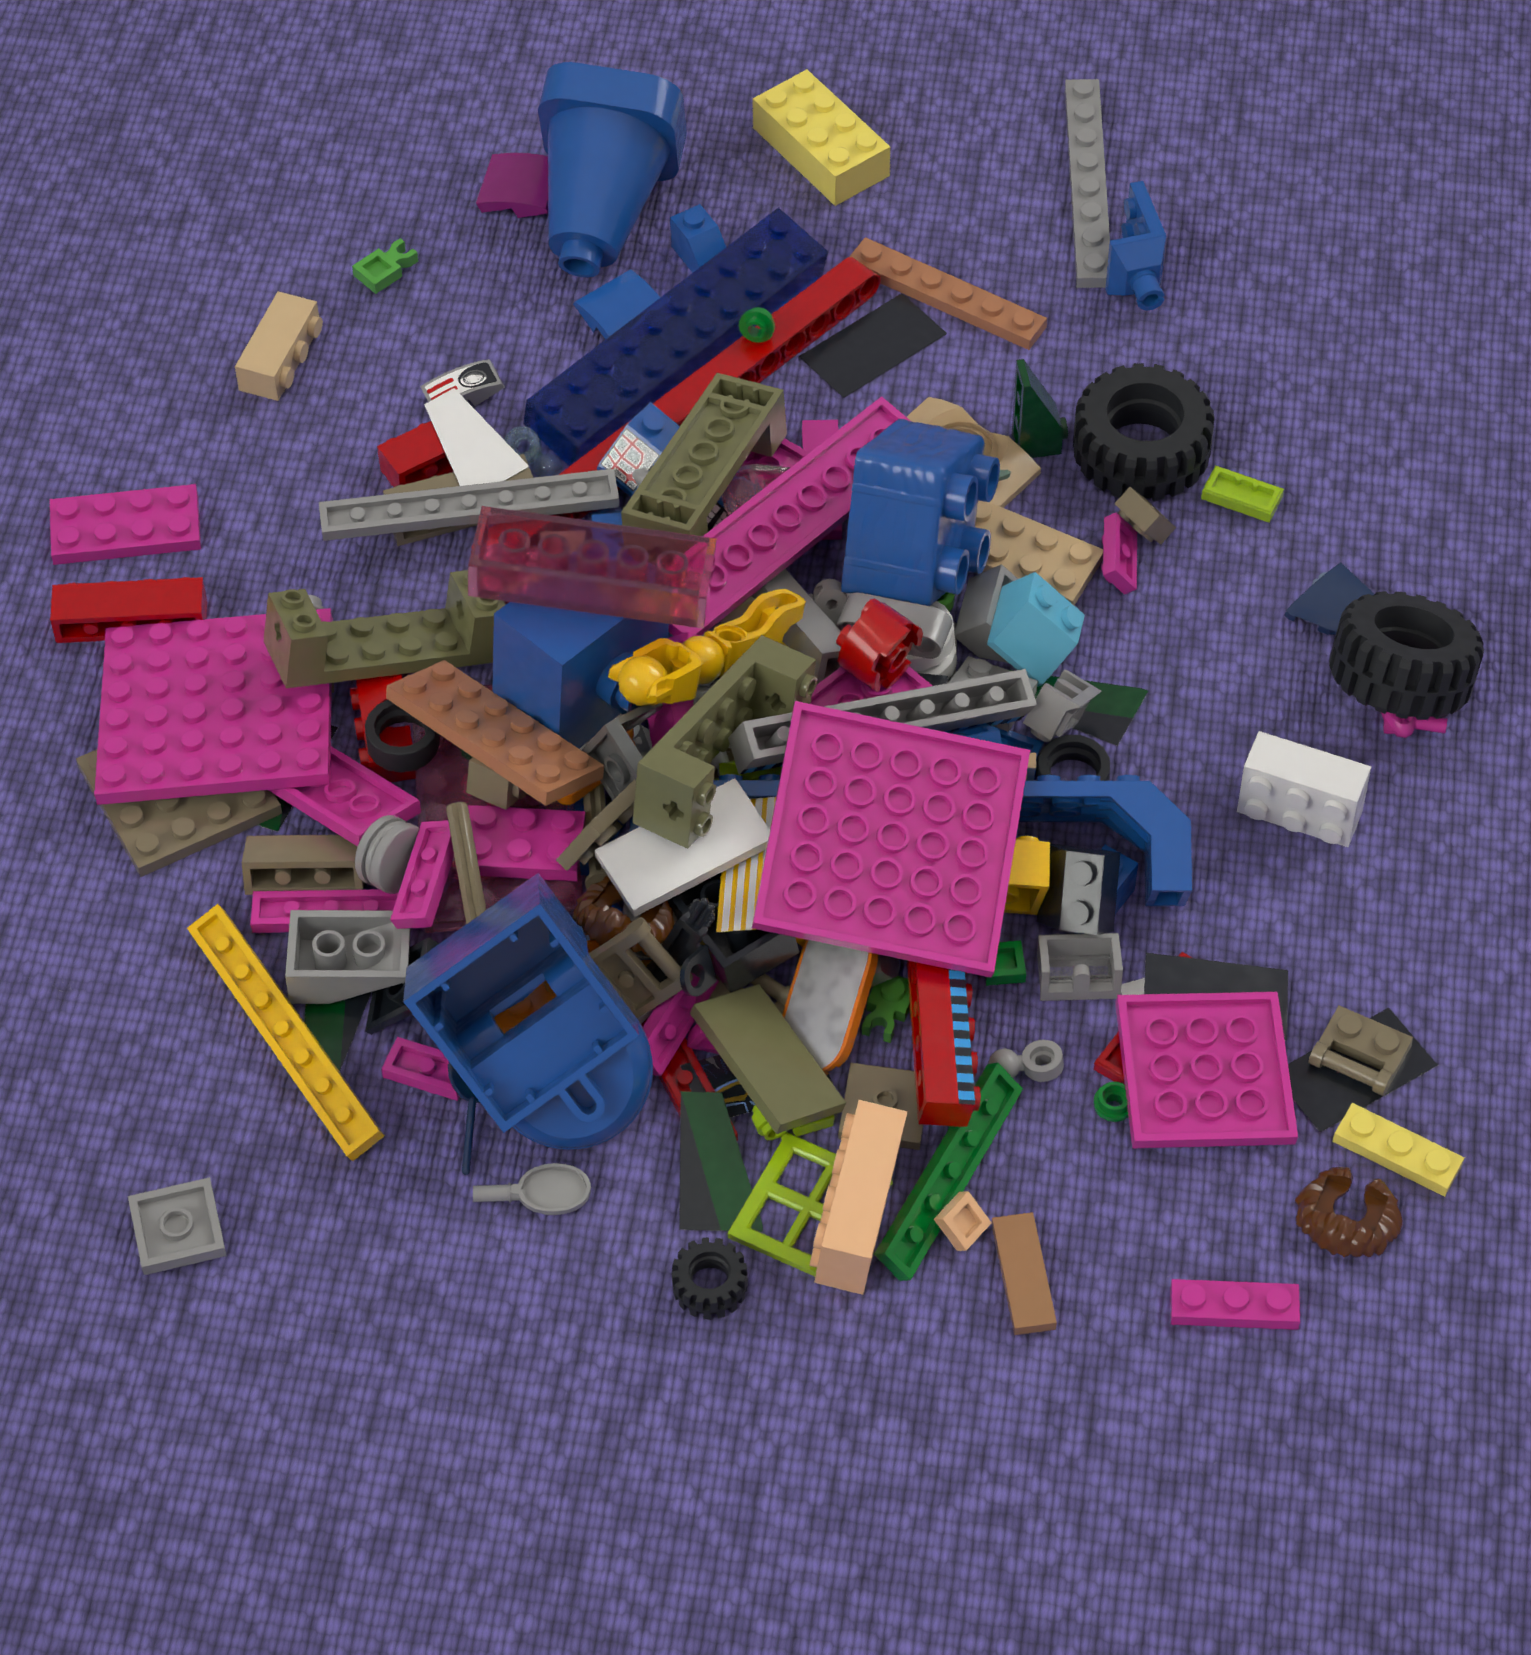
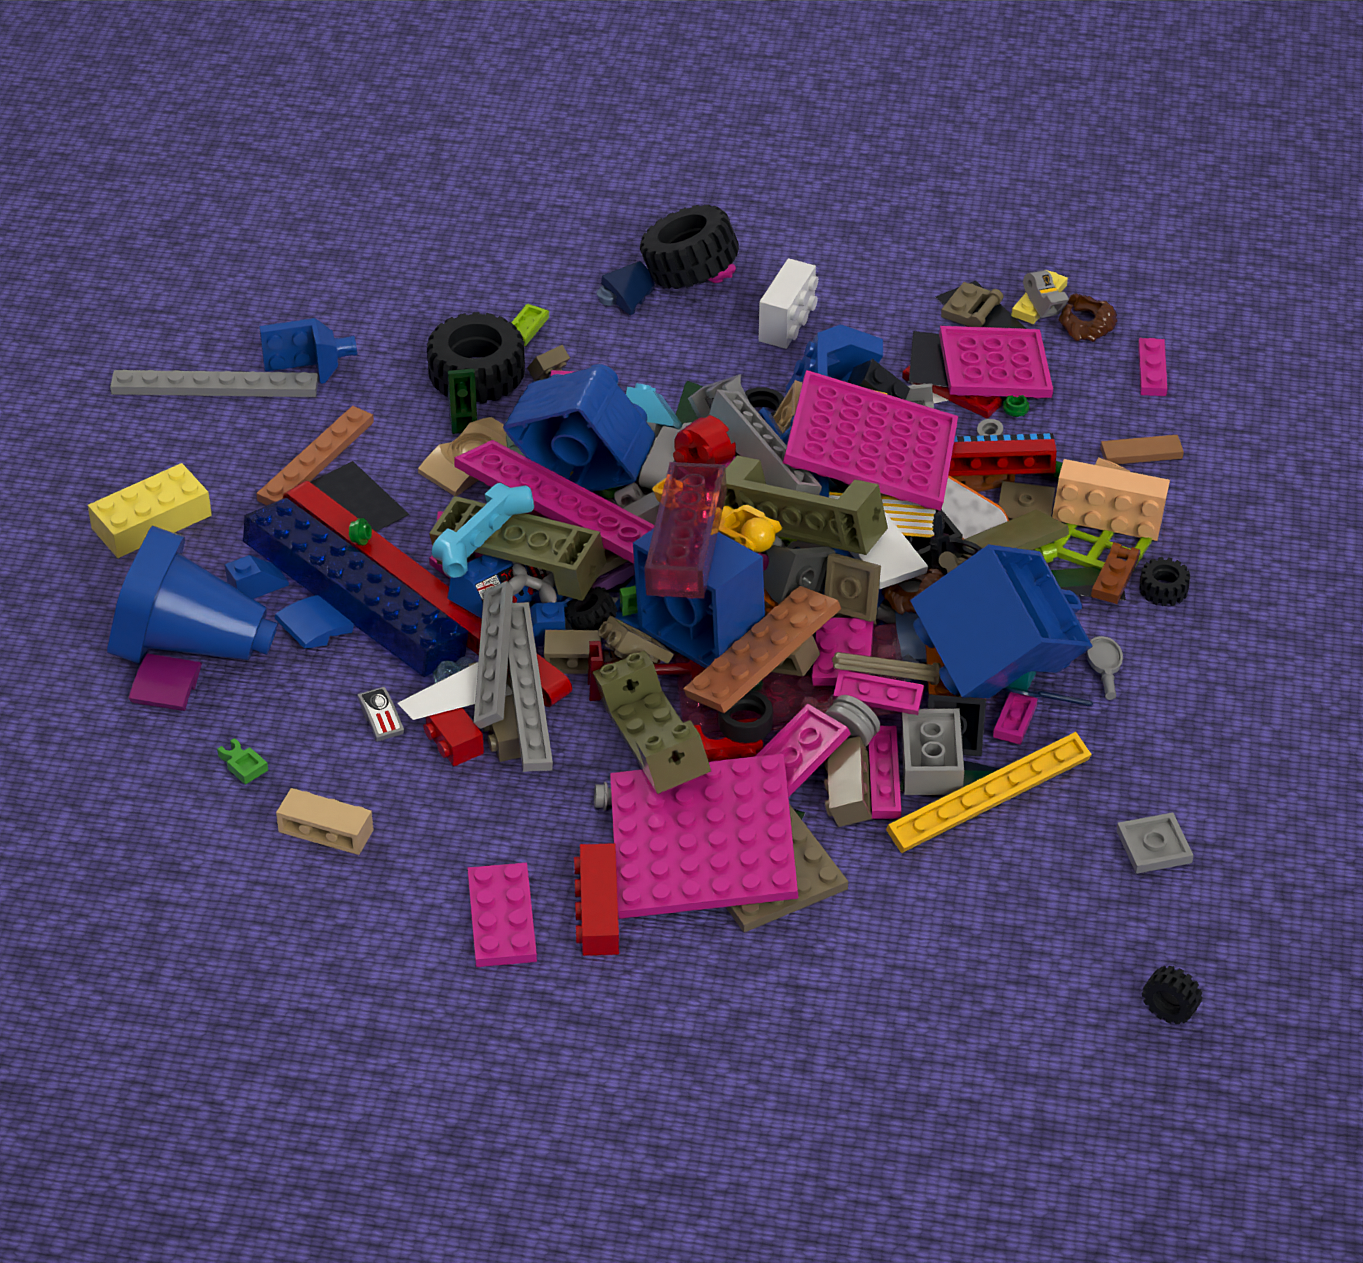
camera: 90 degrees left, 10 degrees down
(497, 464) = (493, 655): none -> light grey plate
(722, 1210) = (1115, 573): none -> dark orange plate
(737, 423) = (502, 502): none -> medium azure plate
(1370, 1133) = (1044, 294): none -> light grey leg

